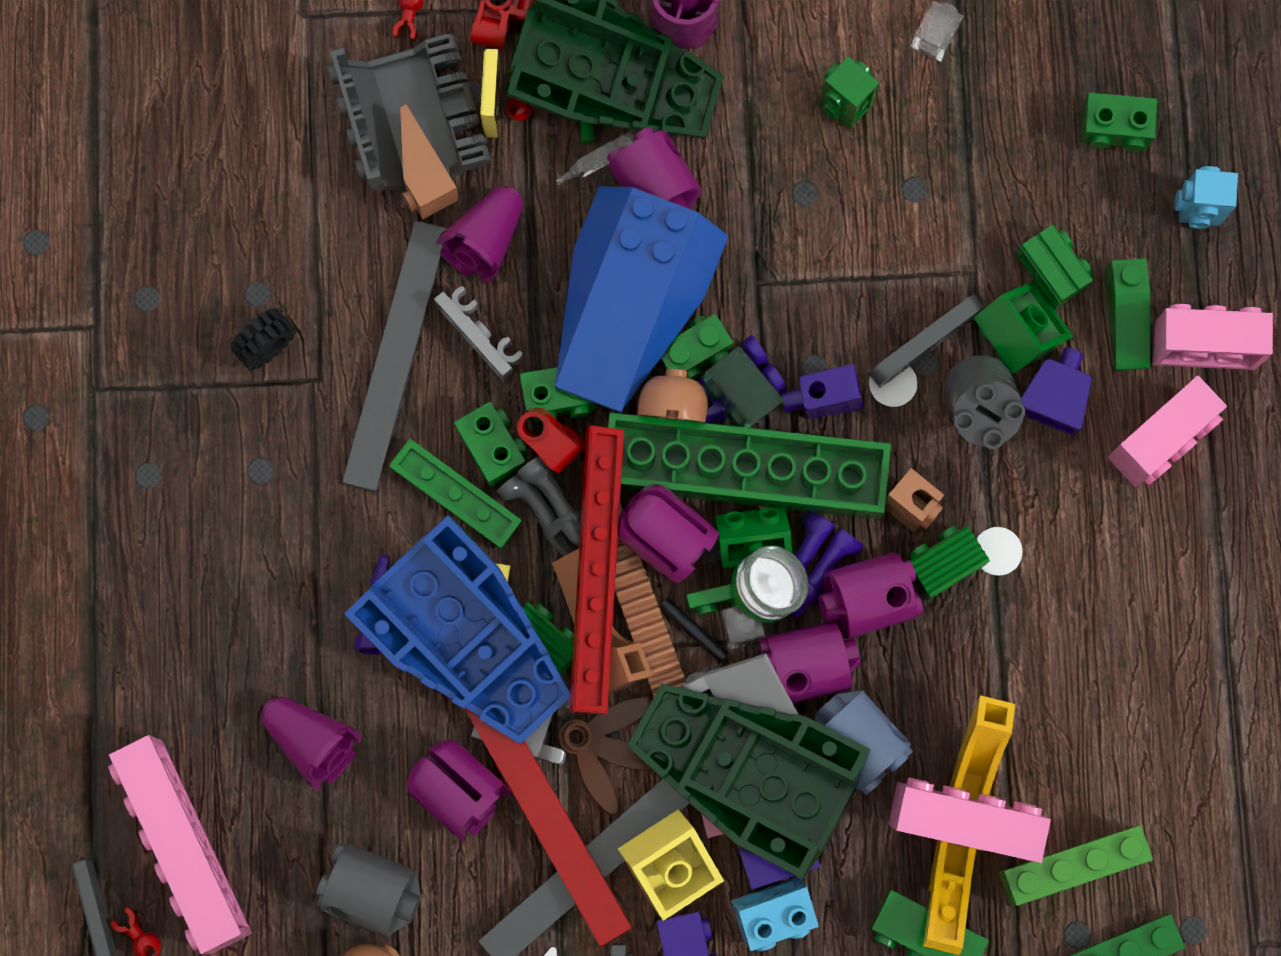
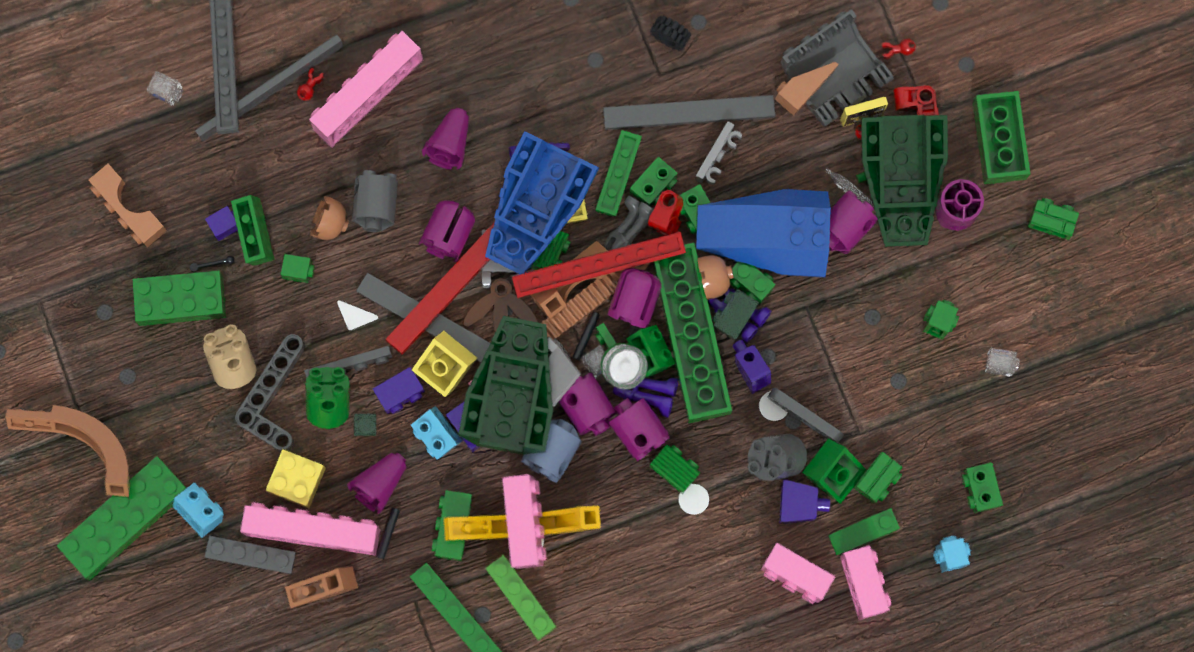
camera: 70 degrees right, 0 degrees up
(482, 235) = (778, 136): magenta cone -> none
(914, 501) = (705, 431): nougat brick -> none

